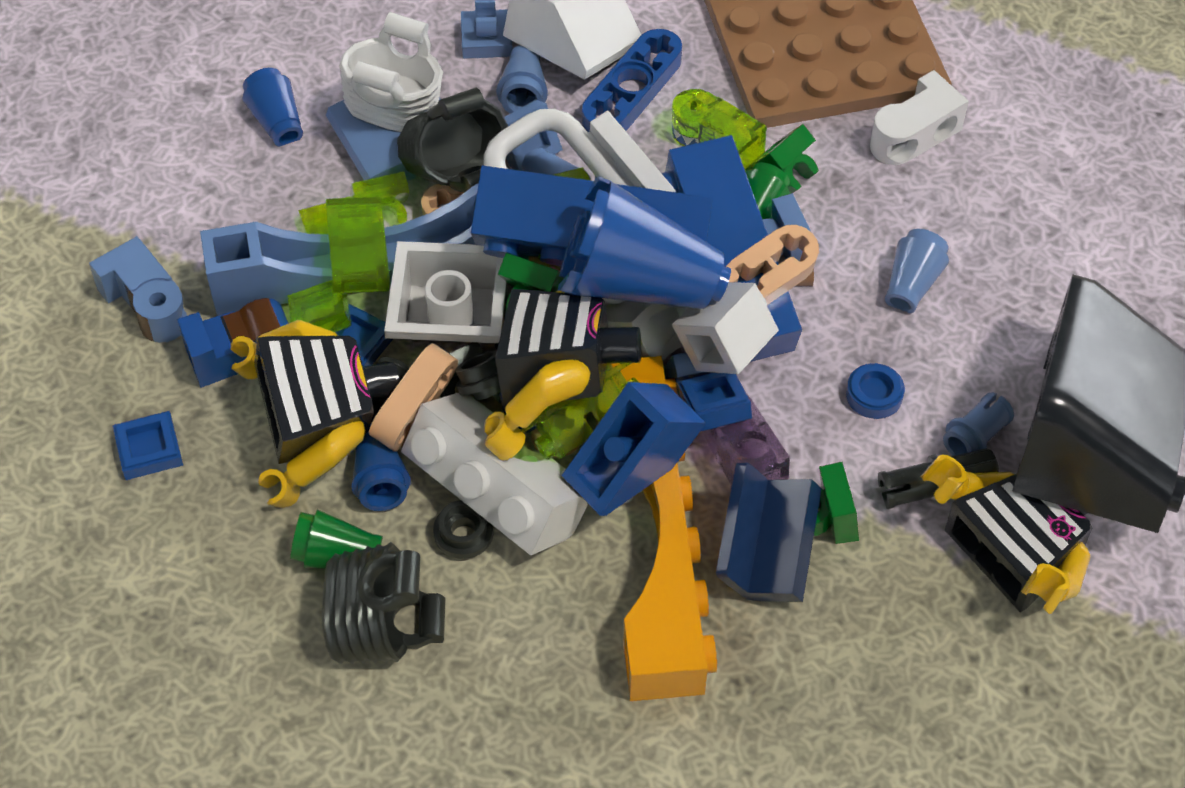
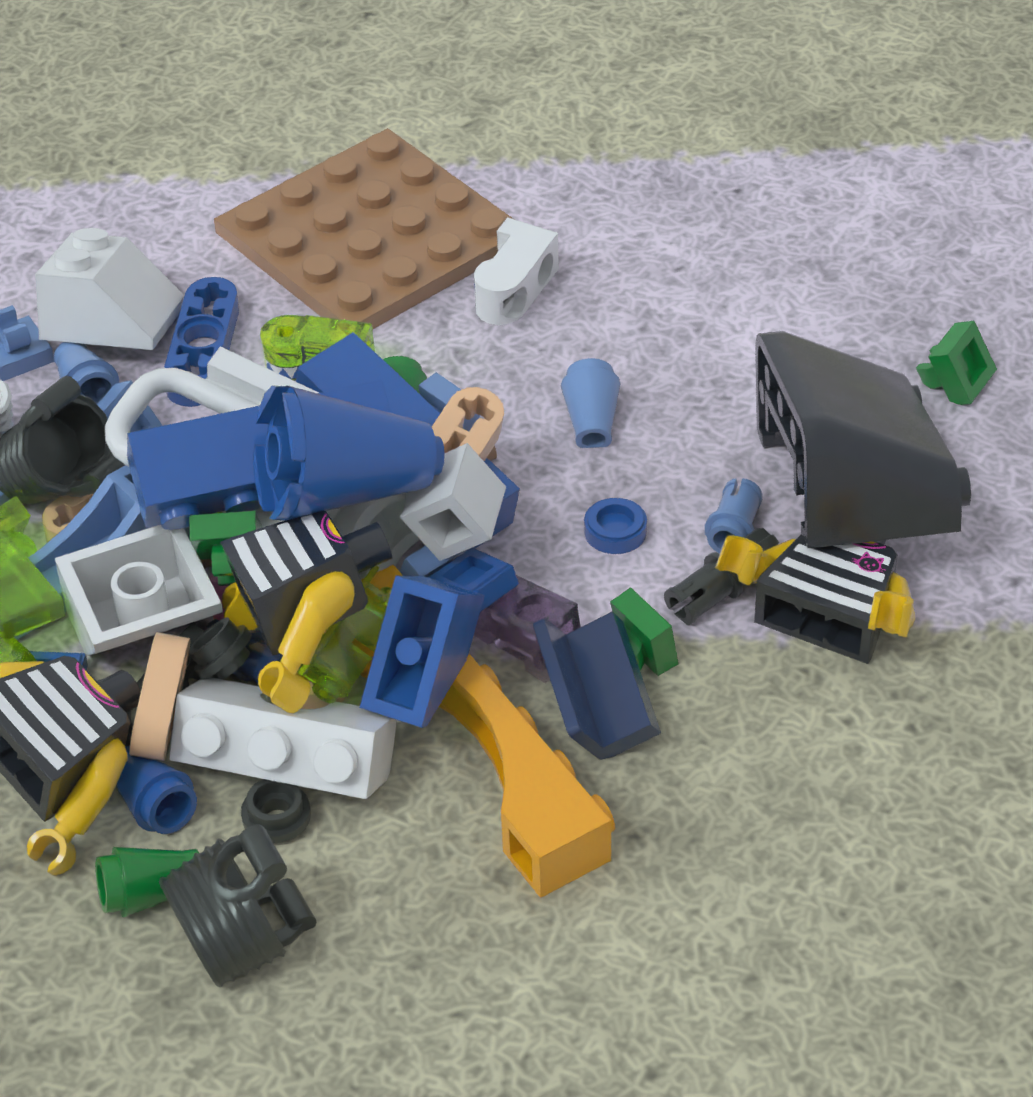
camera: 25 degrees left, 10 degrees down
(788, 155) = (406, 341): green tile -> none

